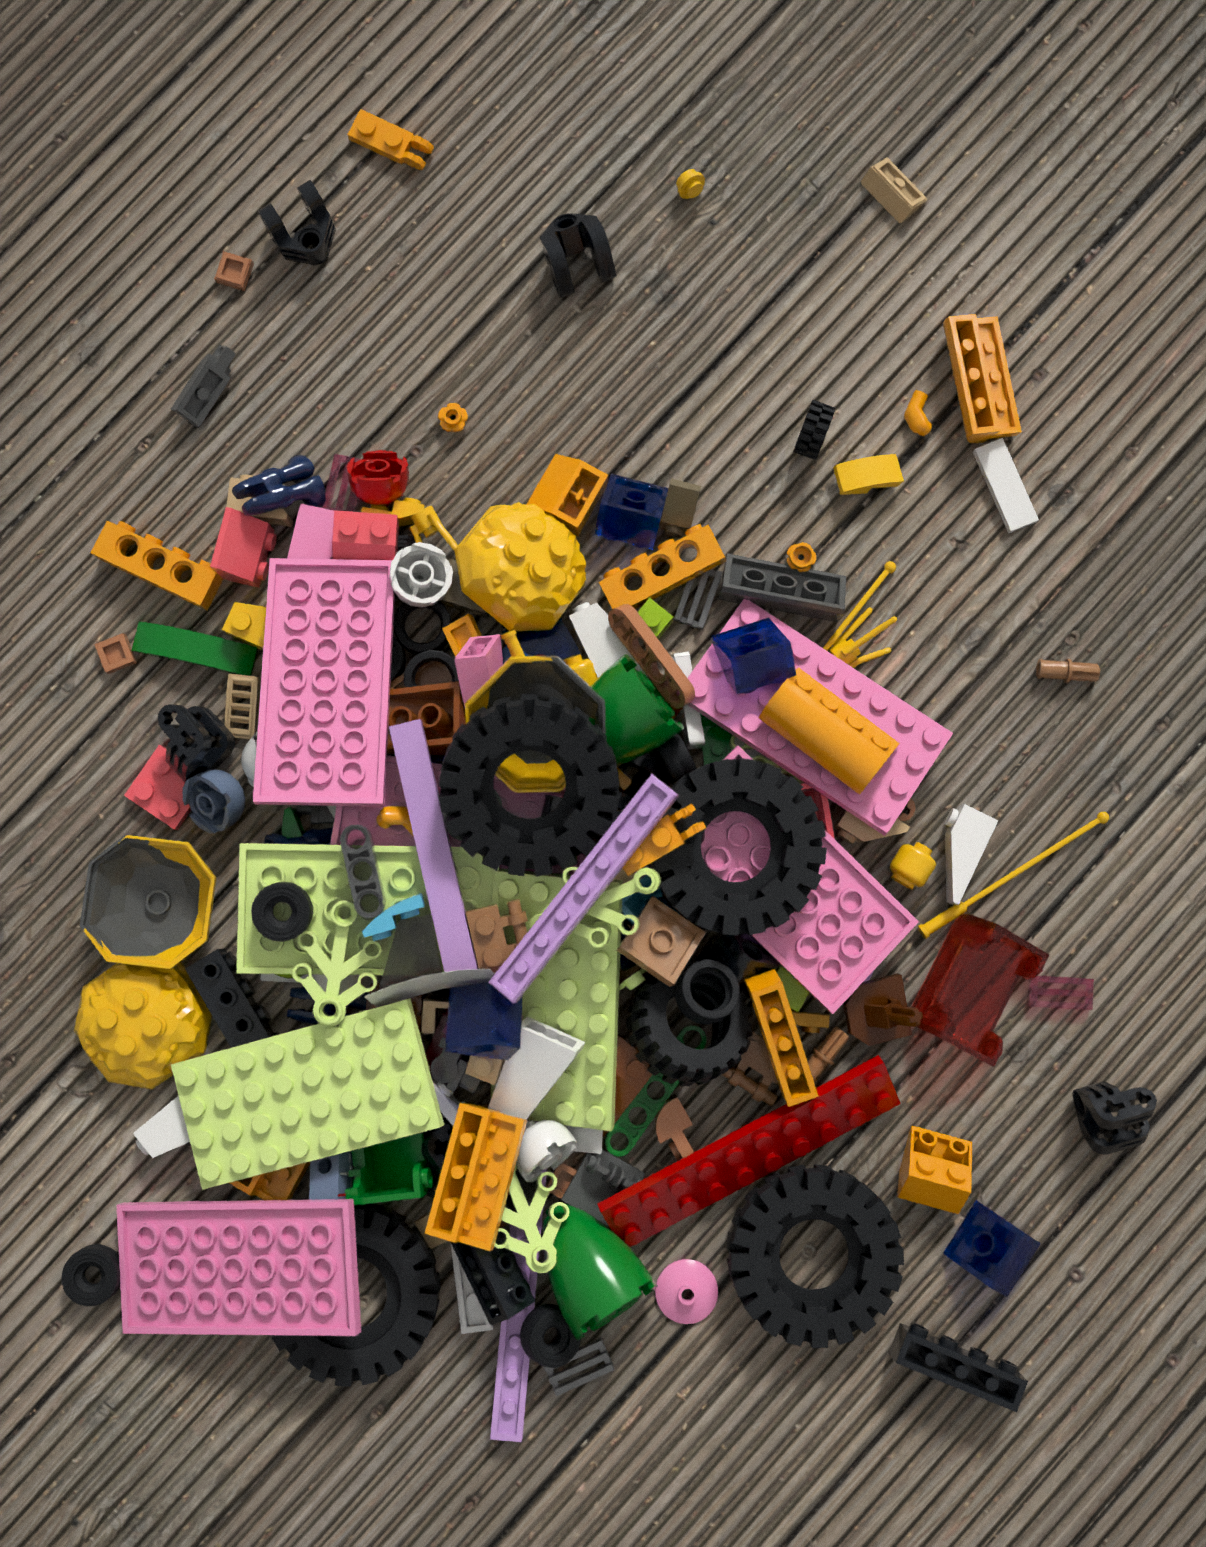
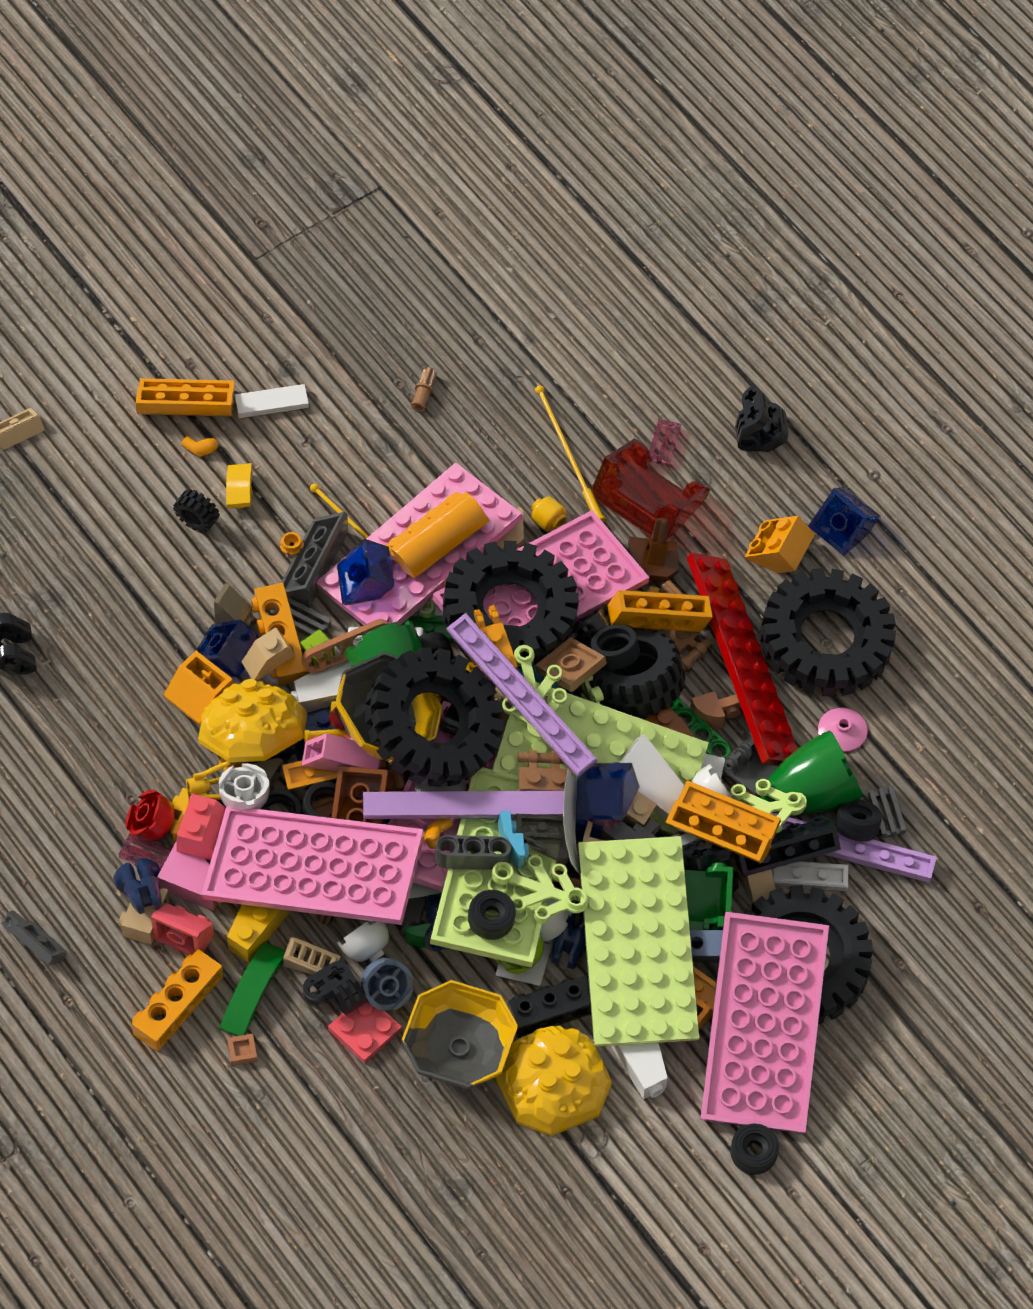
camera: 80 degrees left, 25 degrees down
(456, 424) = (112, 769): light orange plate -> none
(619, 564) = (267, 654): none -> tan slope
(849, 650) = (371, 523): yellow plant -> none
(958, 1367) = (925, 555): black brick -> none
(964, 845) = (544, 480): white slope -> none

